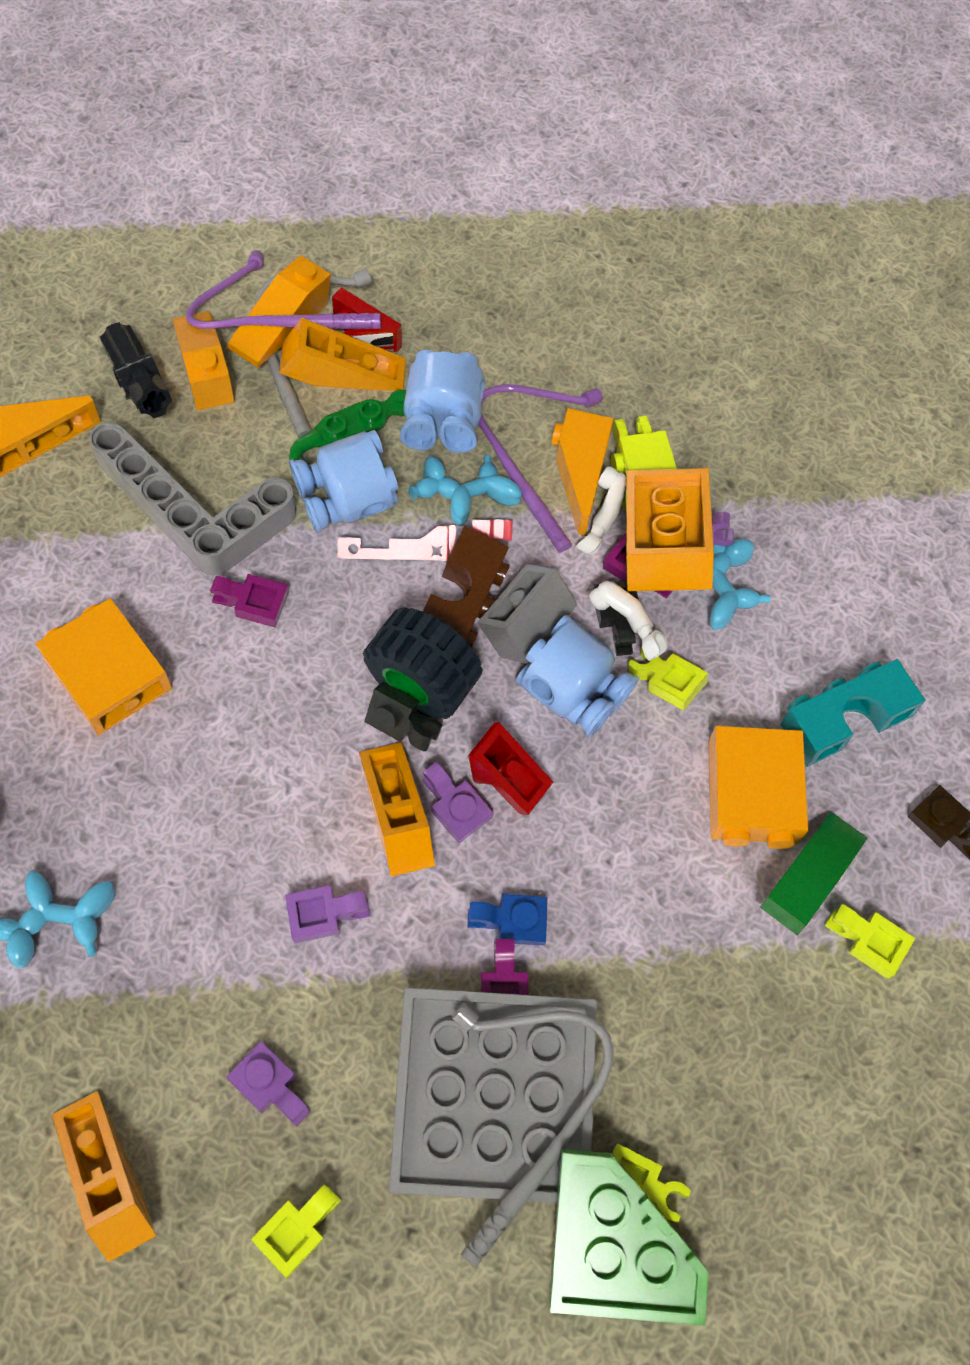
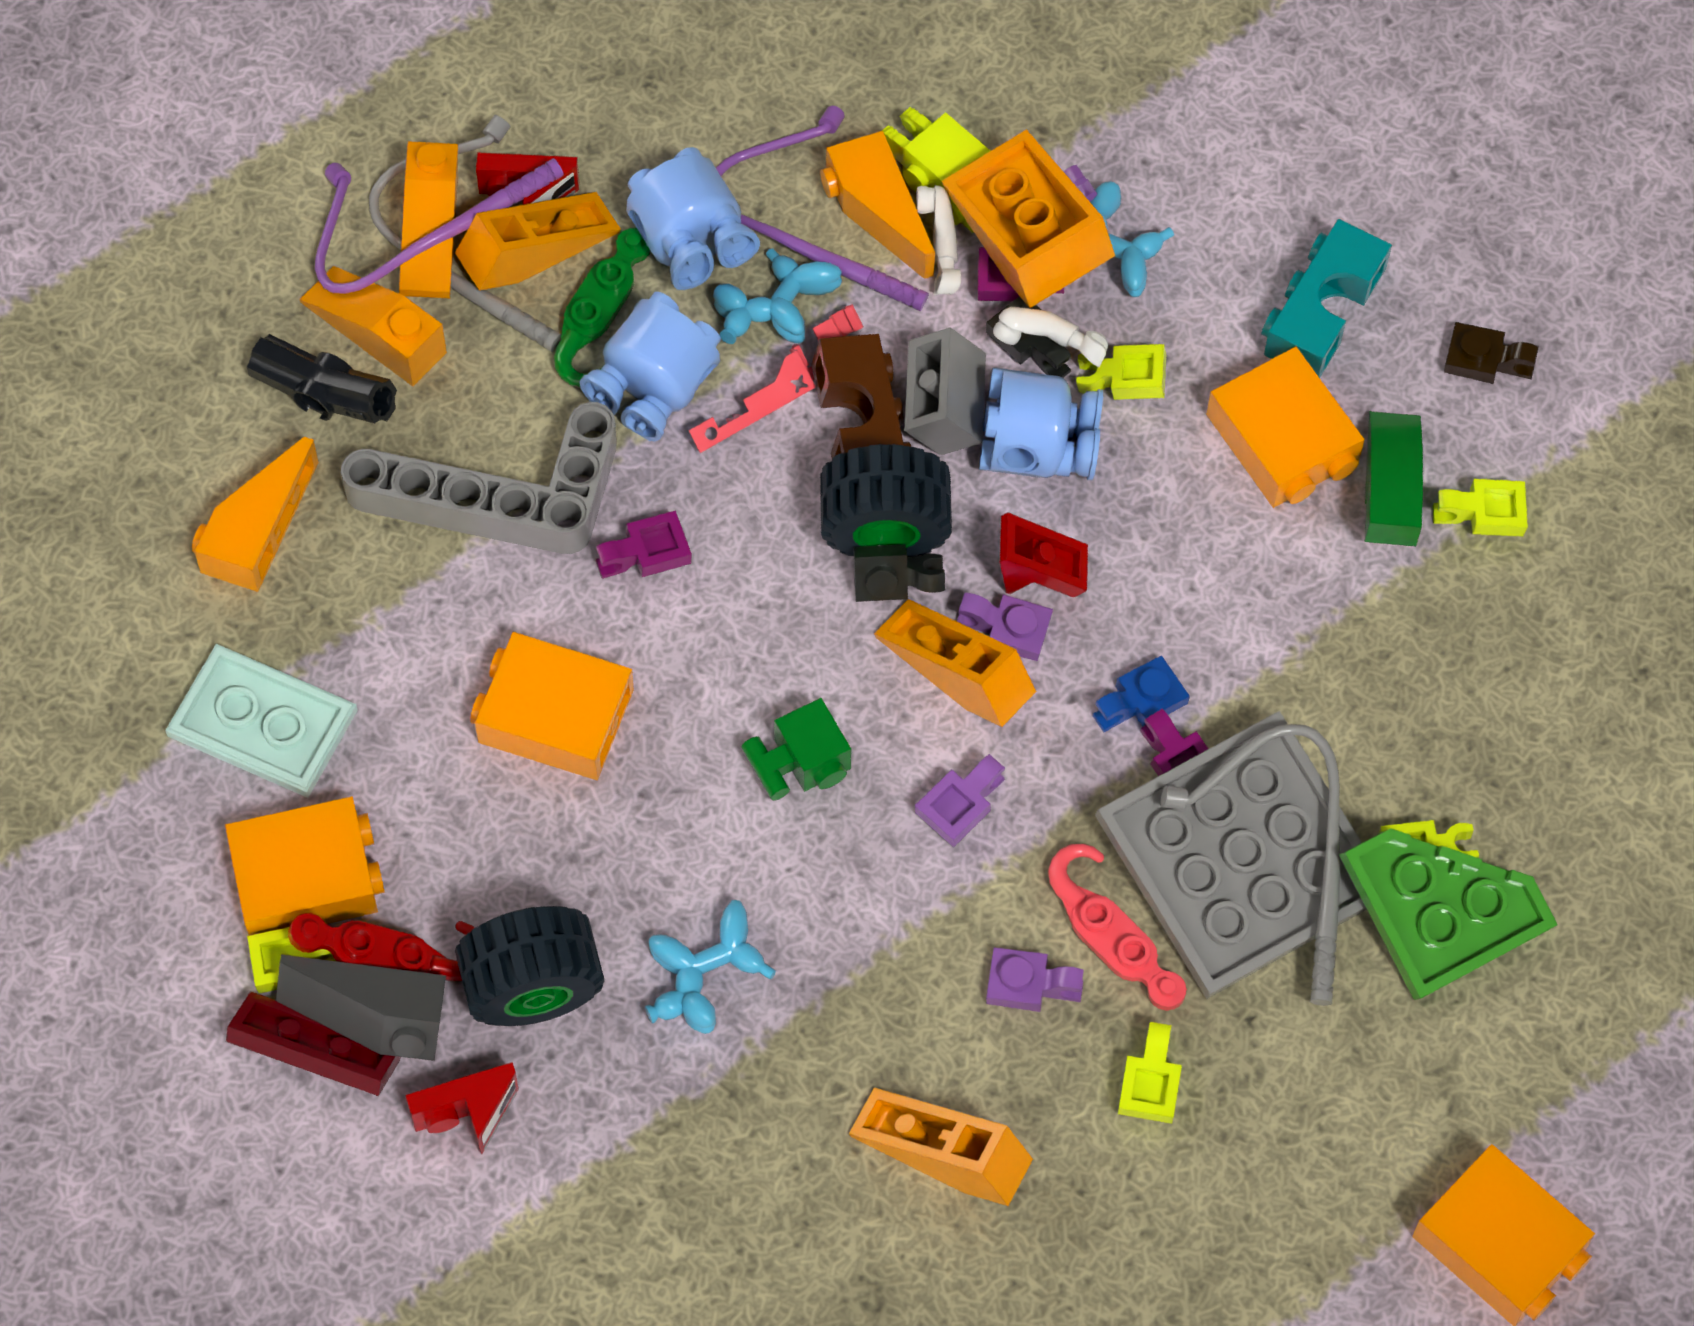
camera: 30 degrees left, 0 degrees up
(245, 805) = (807, 745): none -> green brick
(356, 1089) = (1112, 932): none -> coral piece

